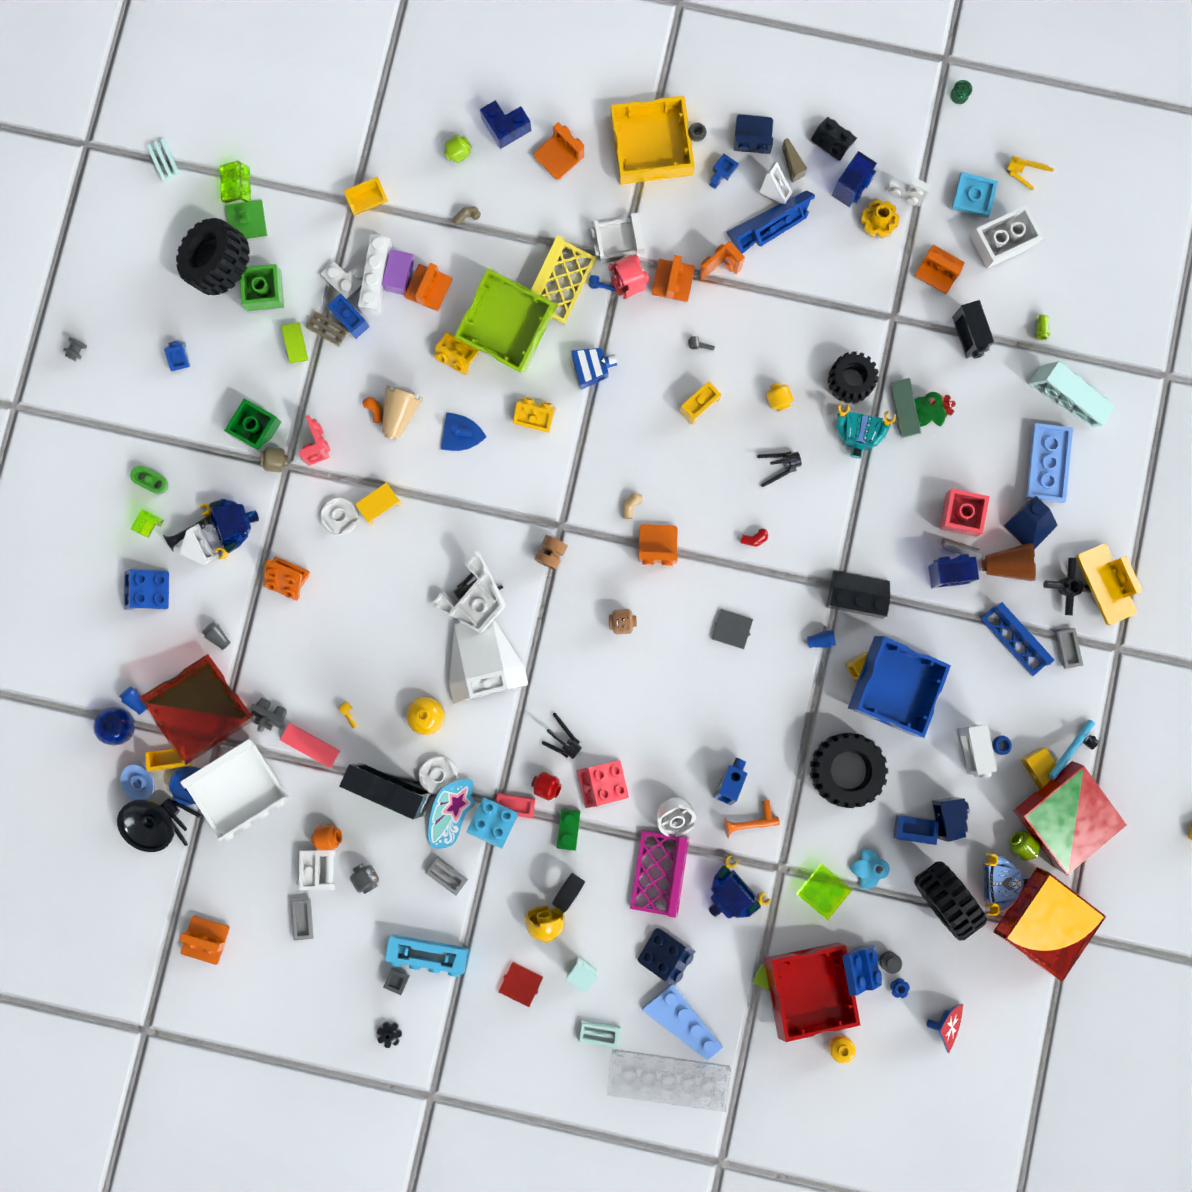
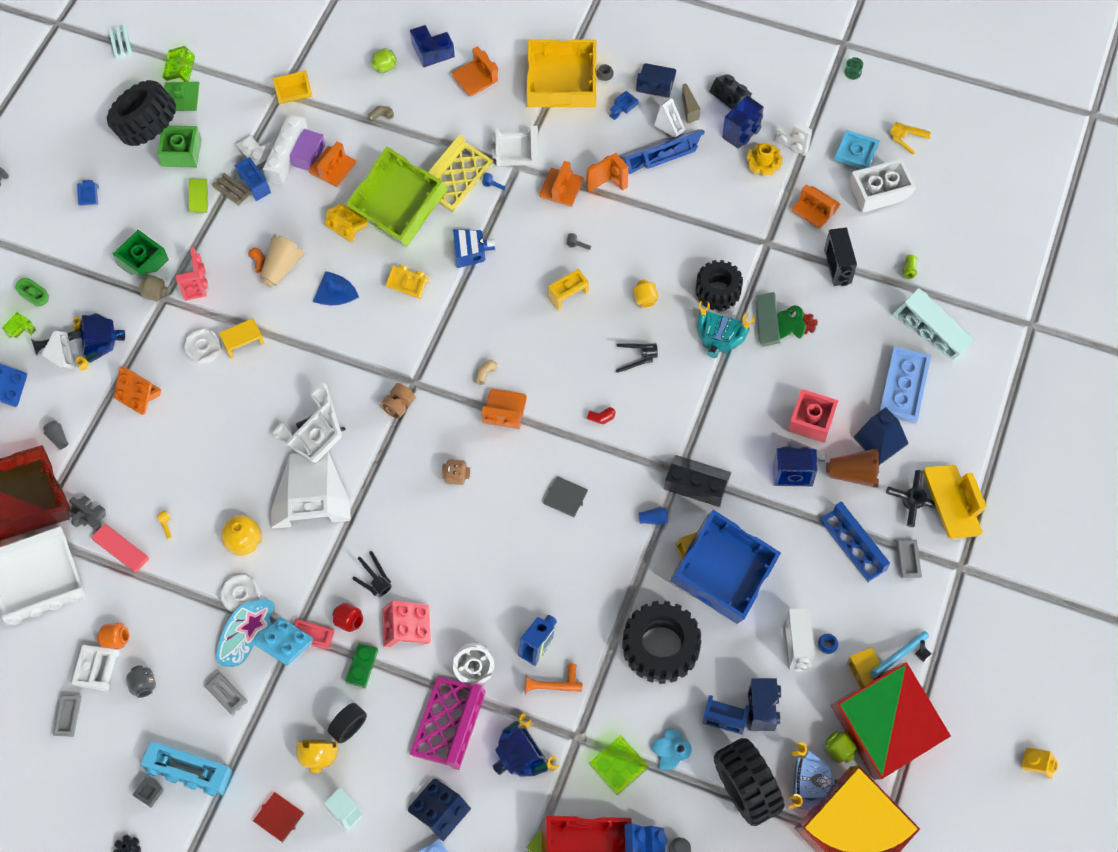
camera: 10 degrees right, 20 degrees down
(386, 790) = (183, 588): black tile -> none
(628, 276) = (519, 175): coral brick -> none

